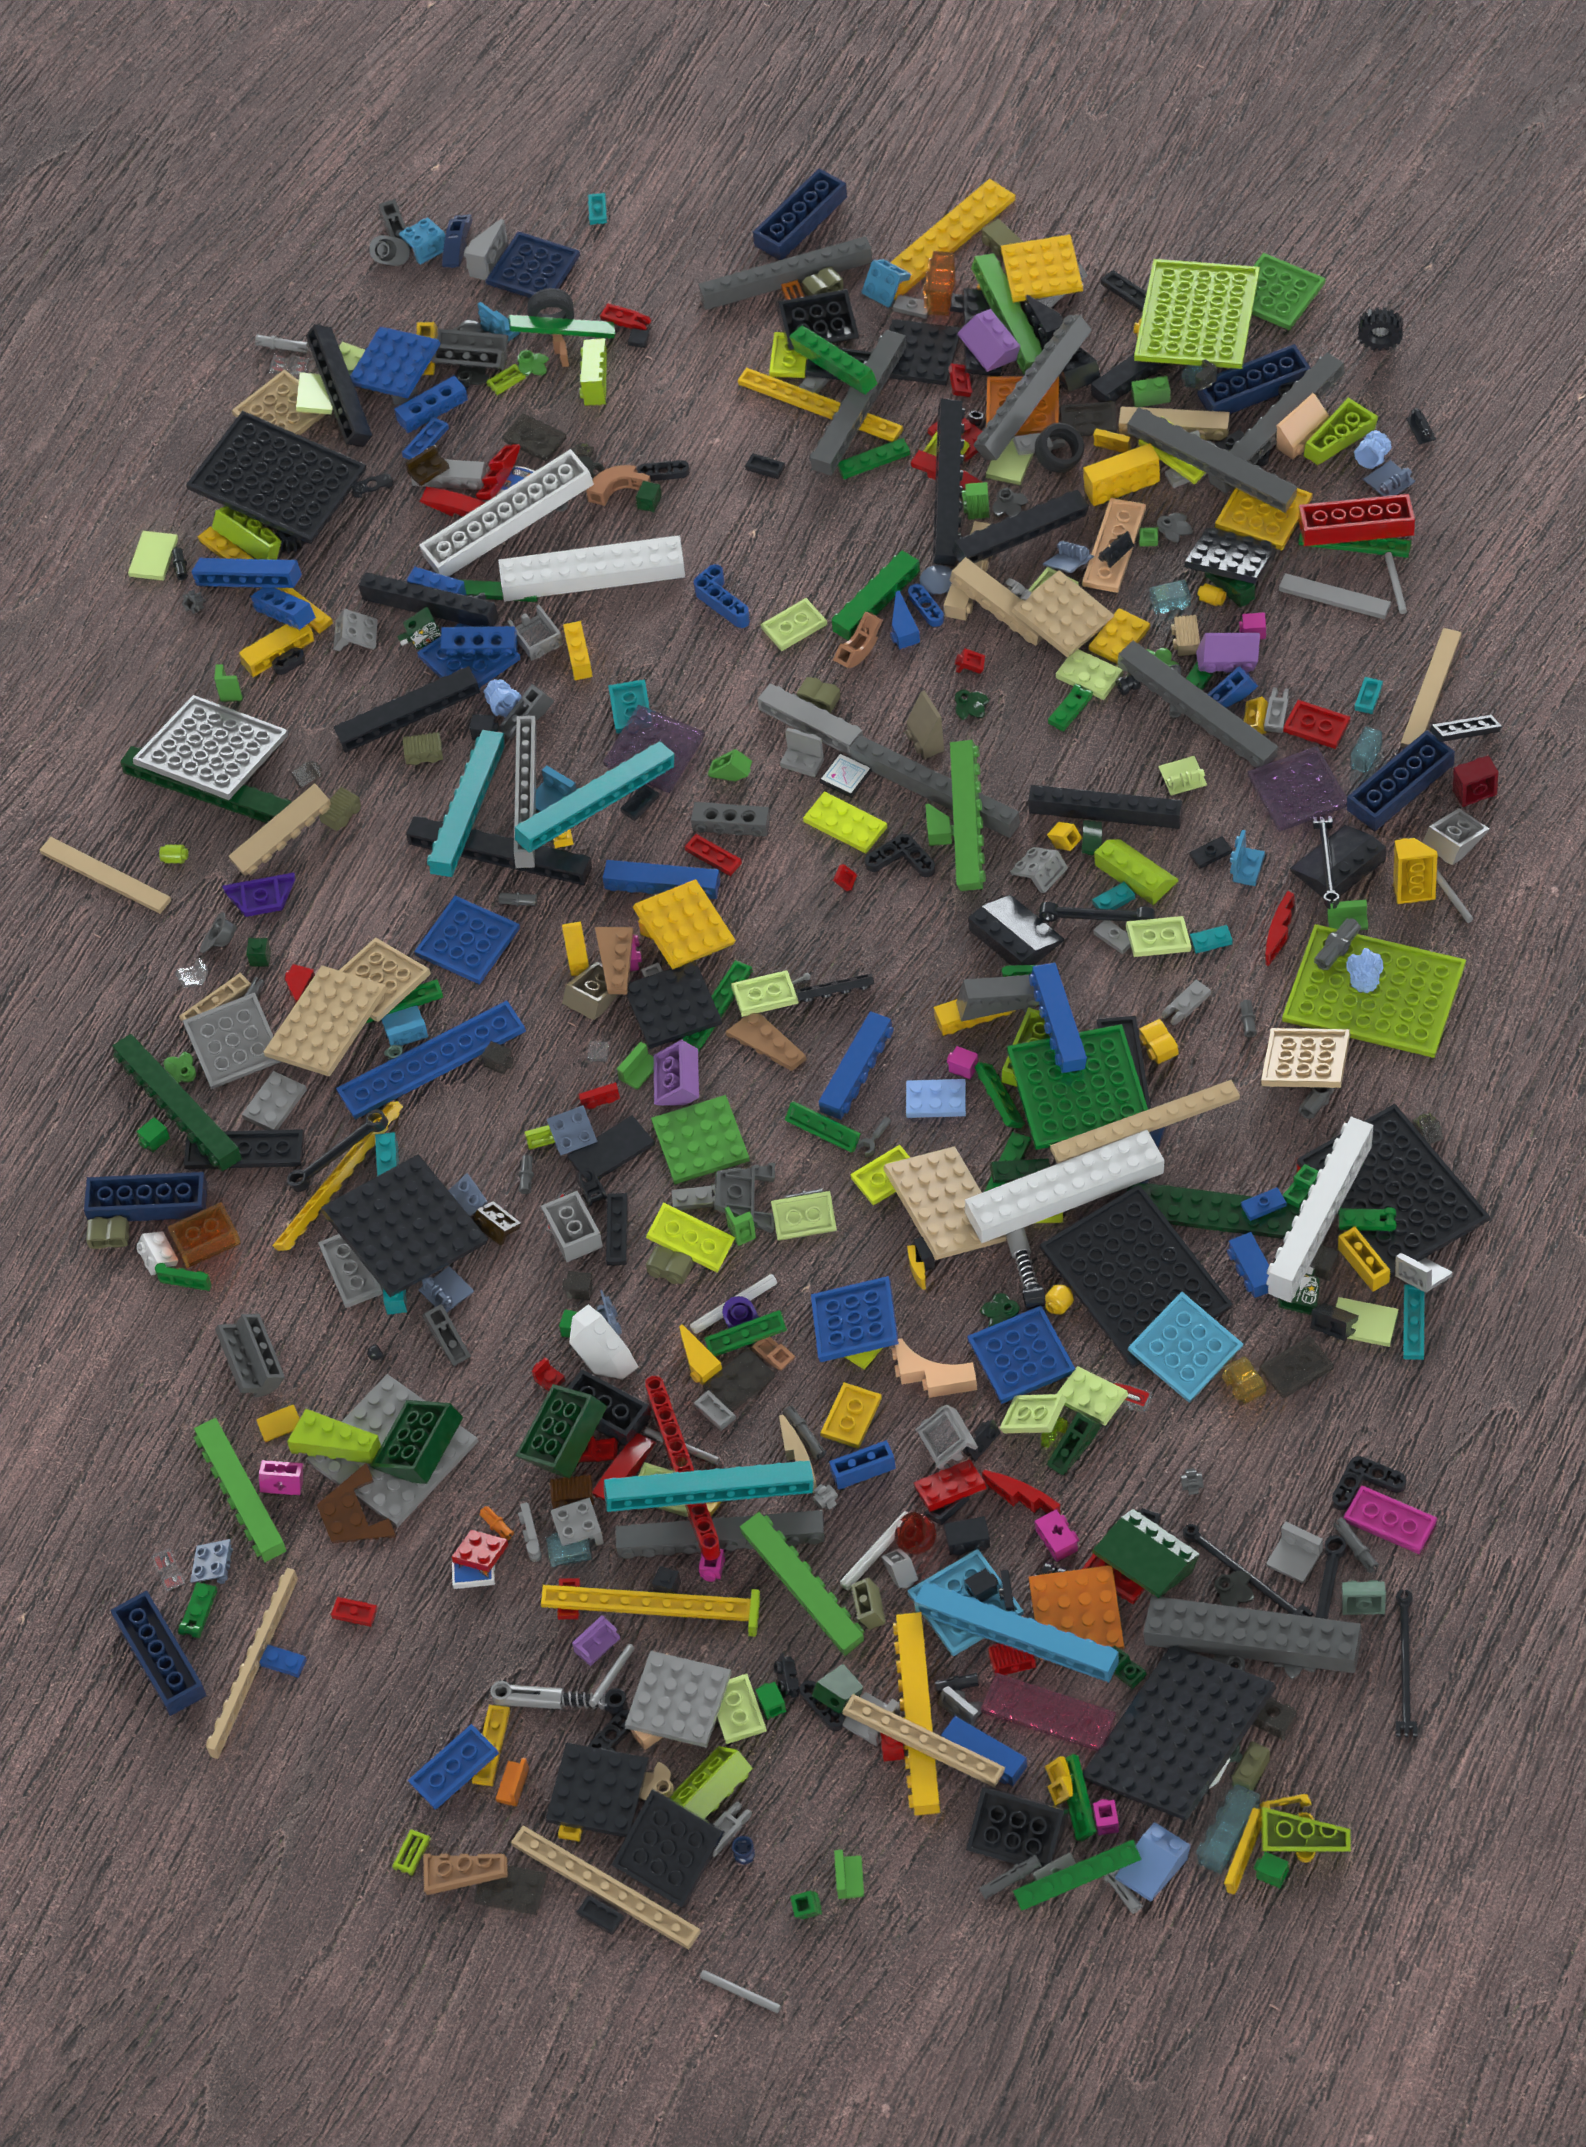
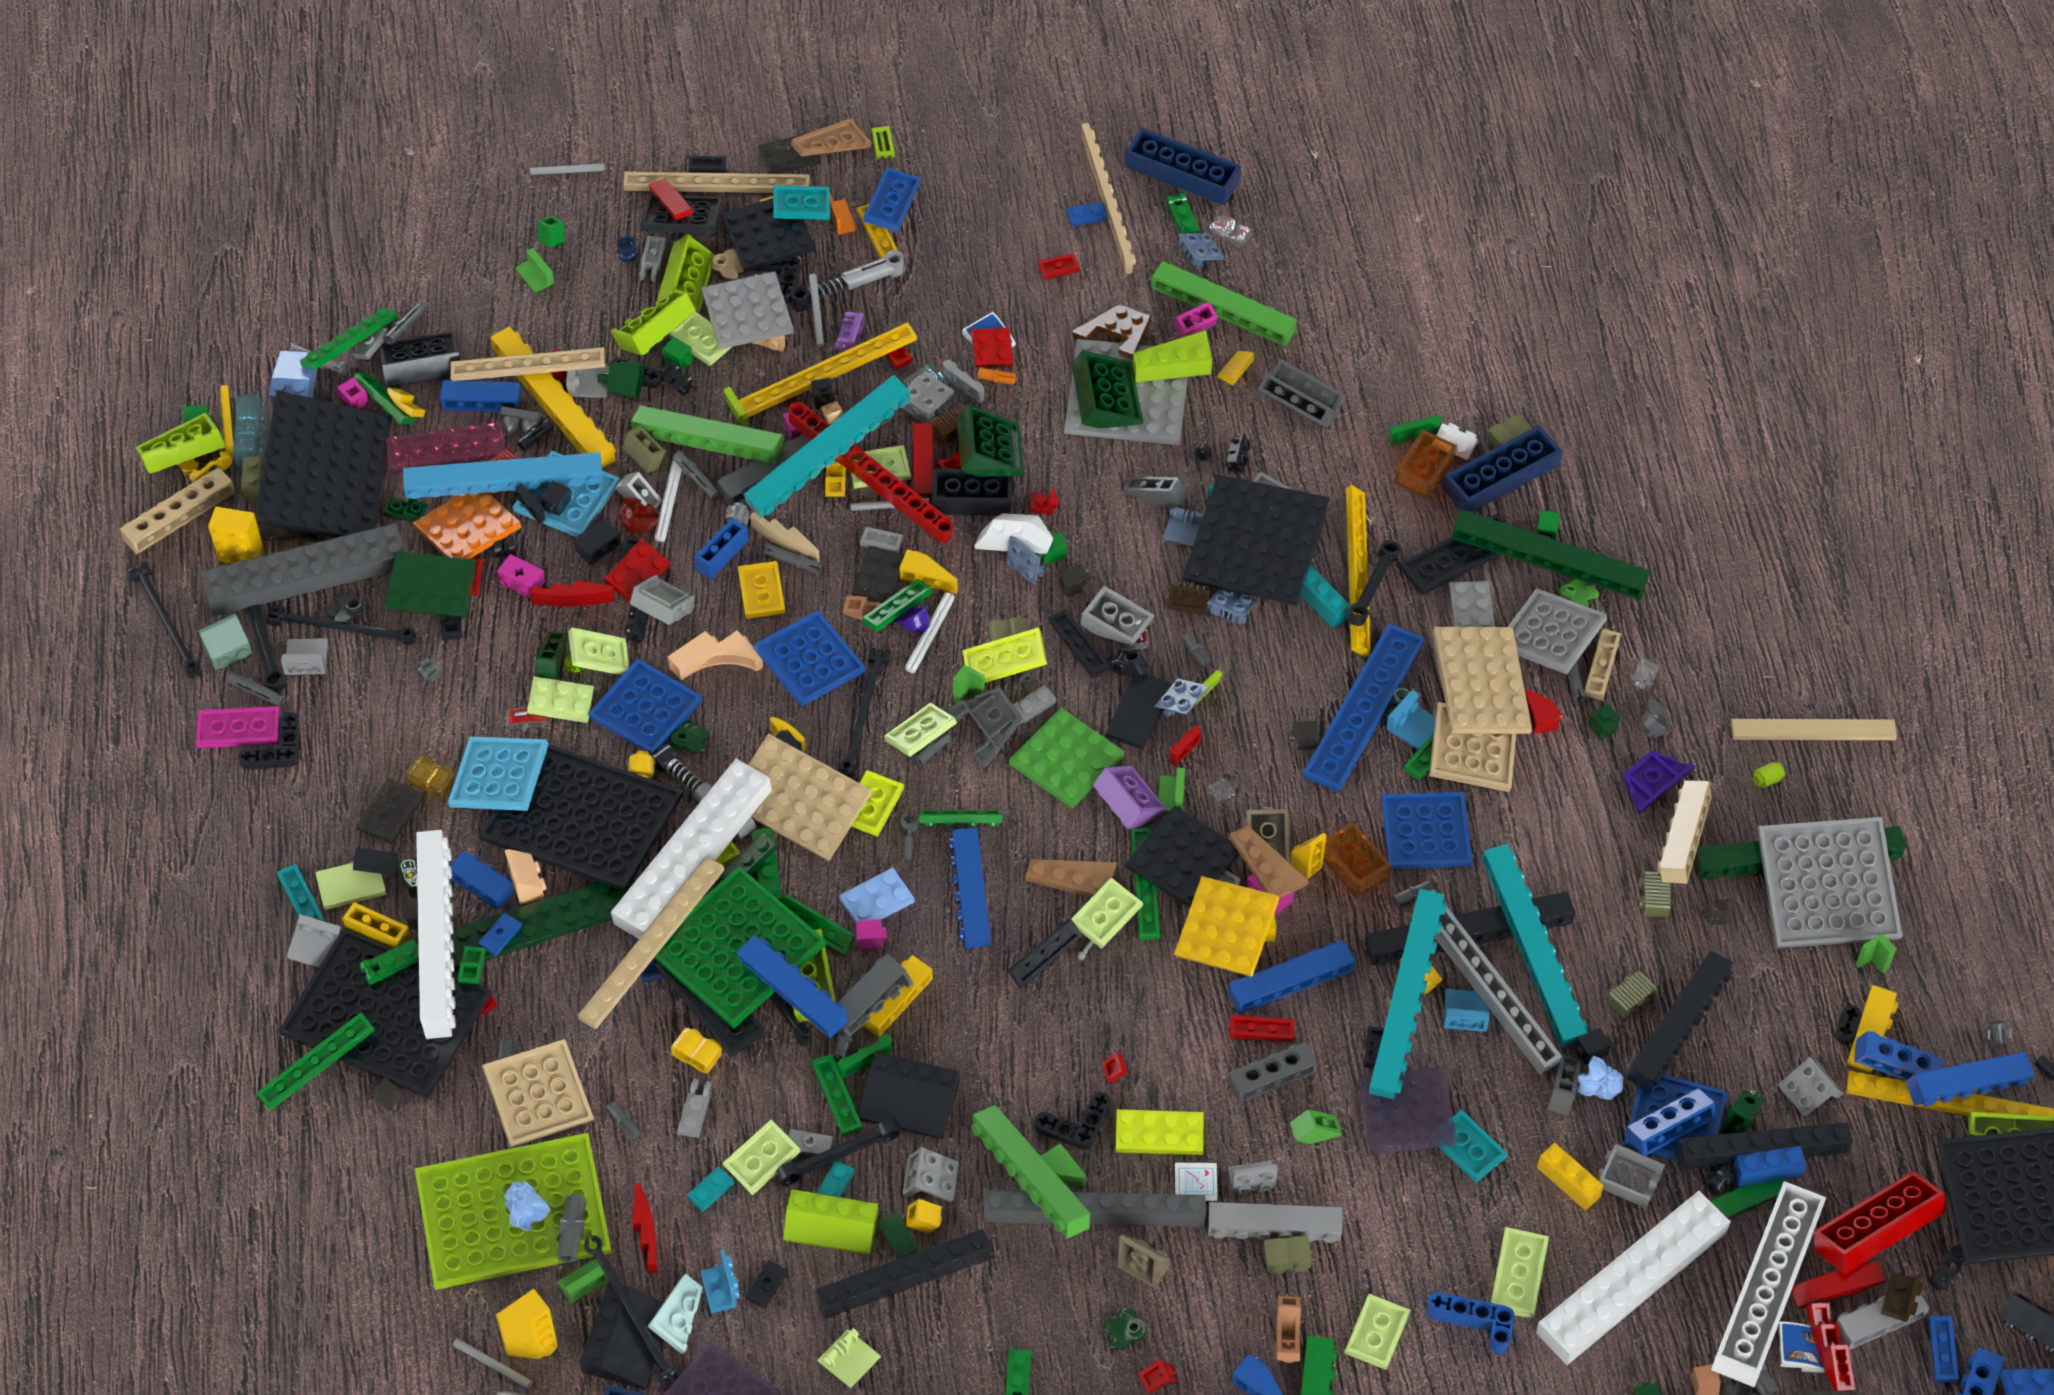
camera: 140 degrees right, 0 degrees up
(341, 1341) = (1240, 447): none -> black hinge
(396, 516) = (1879, 1222): none -> red brick
(543, 936) = (1355, 860): none -> clear orange brick
(547, 1787) = (801, 202): none -> teal plate
(664, 615) = (1520, 1271): none -> yellowish green tile
(669, 1864) = (670, 199): none -> red tile
(673, 1535) = (832, 412): none -> light nougat beam
(777, 1731) = (654, 323): none -> lime wedge
(792, 1304) = (877, 661): none -> black hinge
(838, 1563) = (690, 469): none -> dark grey pin
(1071, 956) = (836, 1095): none -> green plate
(1214, 1244) = (525, 877): none -> light nougat slope
(1294, 856) = (676, 1314): none -> light aqua wing
(1301, 1688) = (235, 535): none -> yellow brick
(1348, 1764) = (177, 510): none -> tan brick
(1472, 1169) = (315, 1061): none -> green plate

